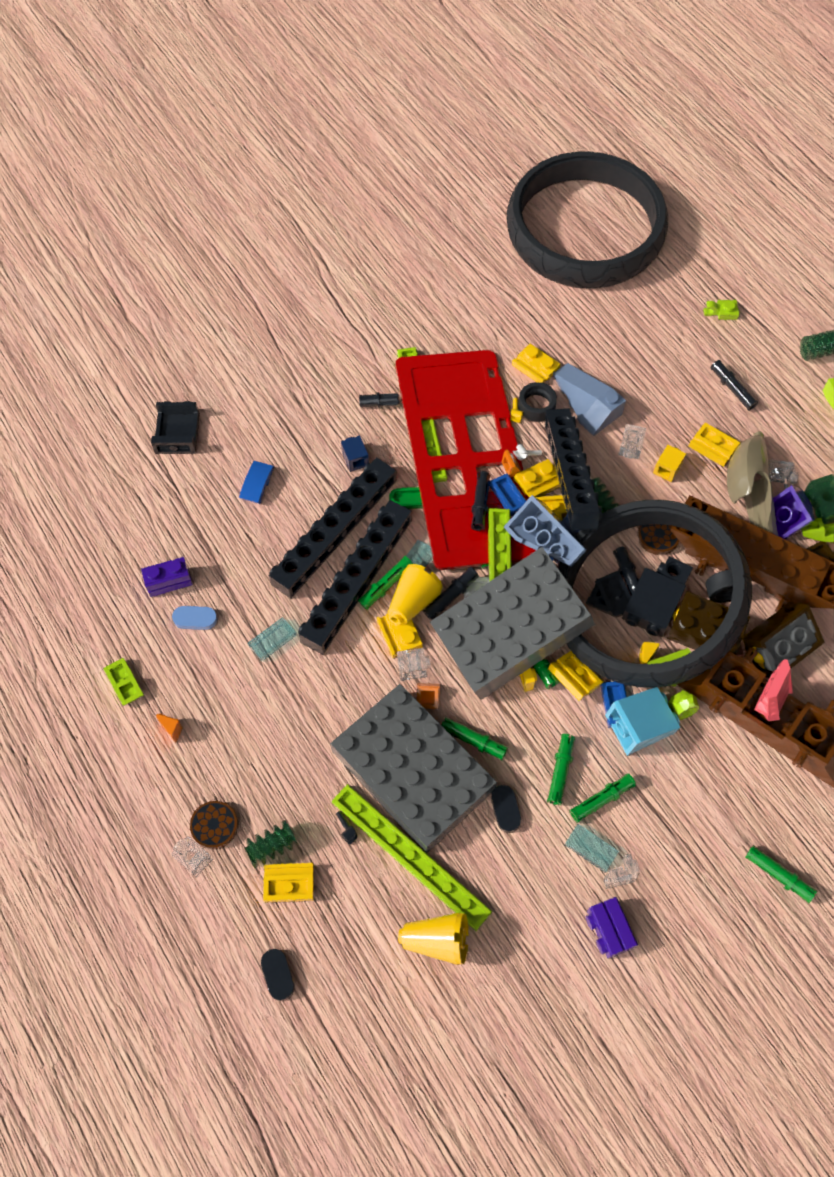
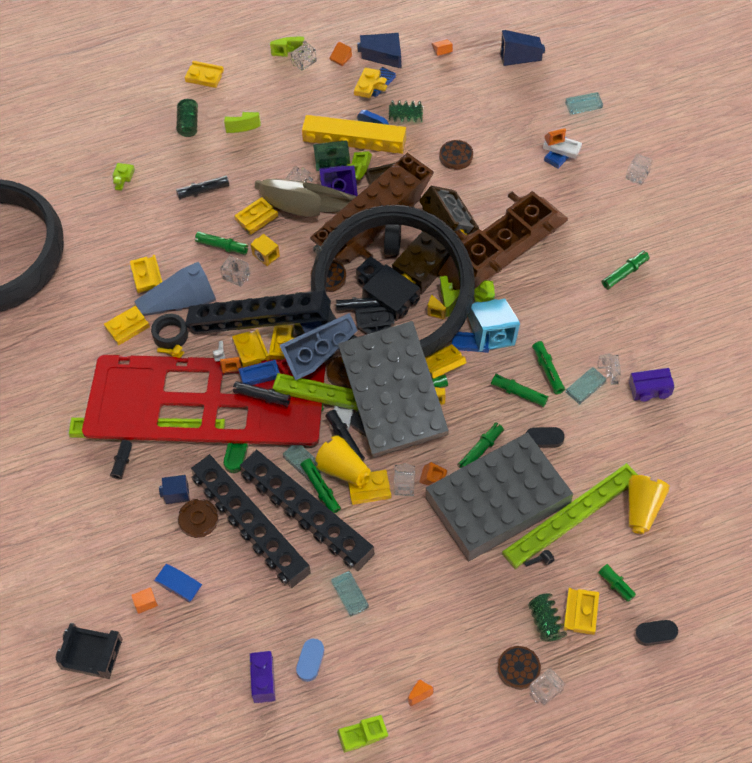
camera: 75 degrees left, 5 degrees down
(234, 459) = (144, 600): none -> orange slope
(329, 482) = (198, 518): none -> reddish brown tile
(330, 920) = (617, 582): none -> green axle
(603, 362) = (146, 273): none -> yellow plate
(665, 427) = (226, 244): none -> green pin
(775, 692) = (496, 224): coral slope -> none

